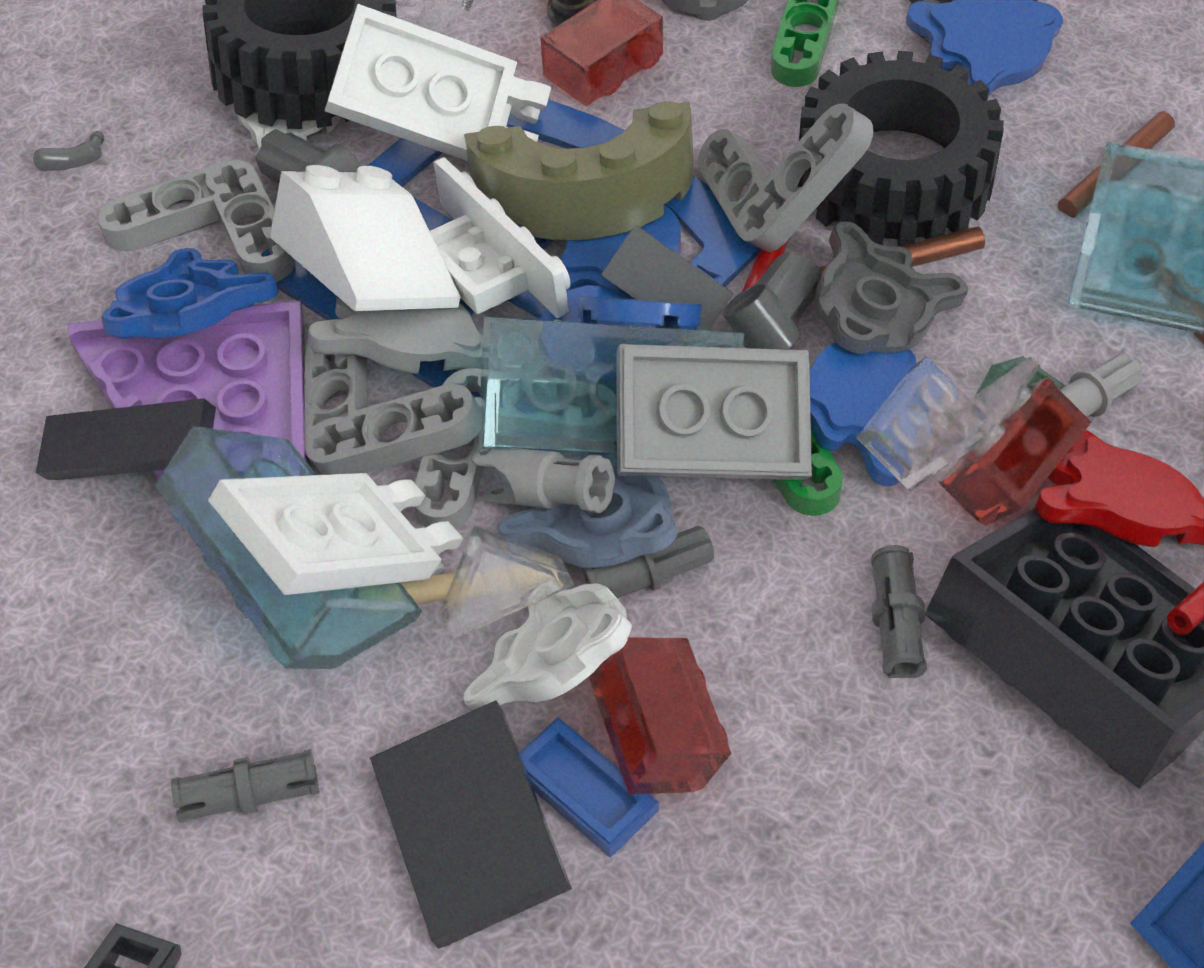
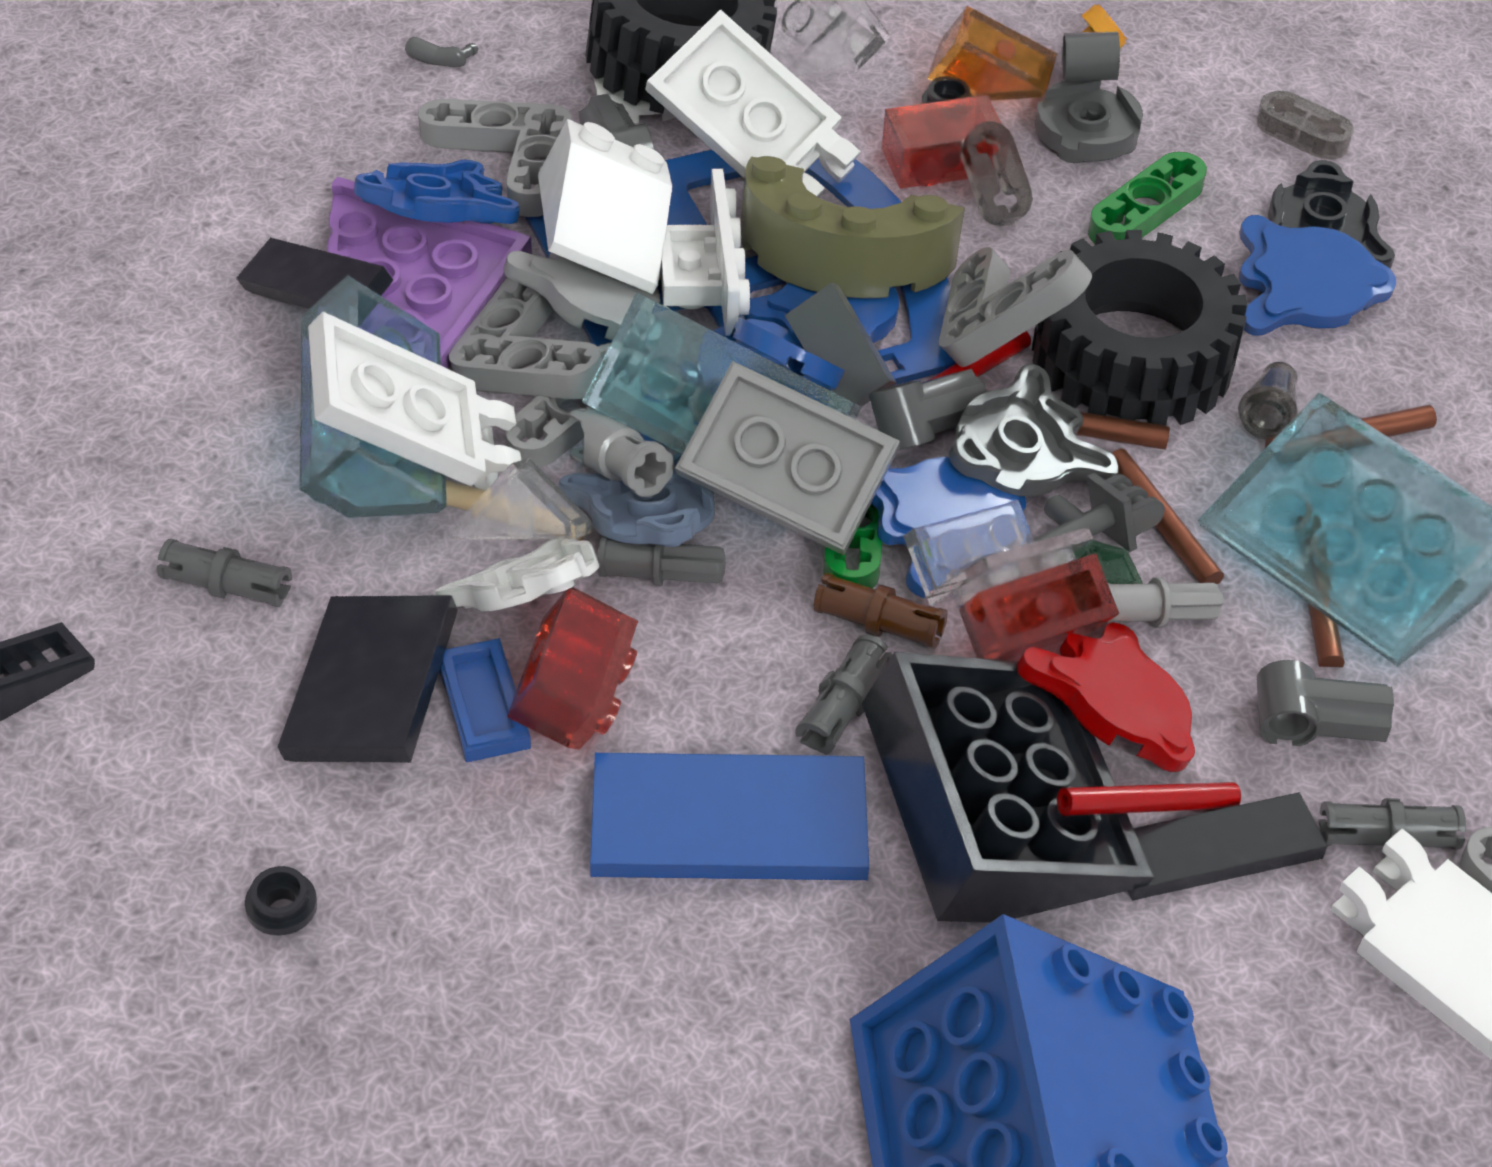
camera: 25 degrees right, 5 degrees down
(675, 57) = (1007, 169): none -> clear smoke beam
(872, 516) = (880, 610): none -> reddish brown pin
(884, 785) = (729, 816): none -> blue tile
(995, 328) = (1116, 510): none -> dark grey arm
(1036, 314) = (1171, 526): none -> copper bar
(1042, 166) = (1270, 401): none -> clear smoke cone

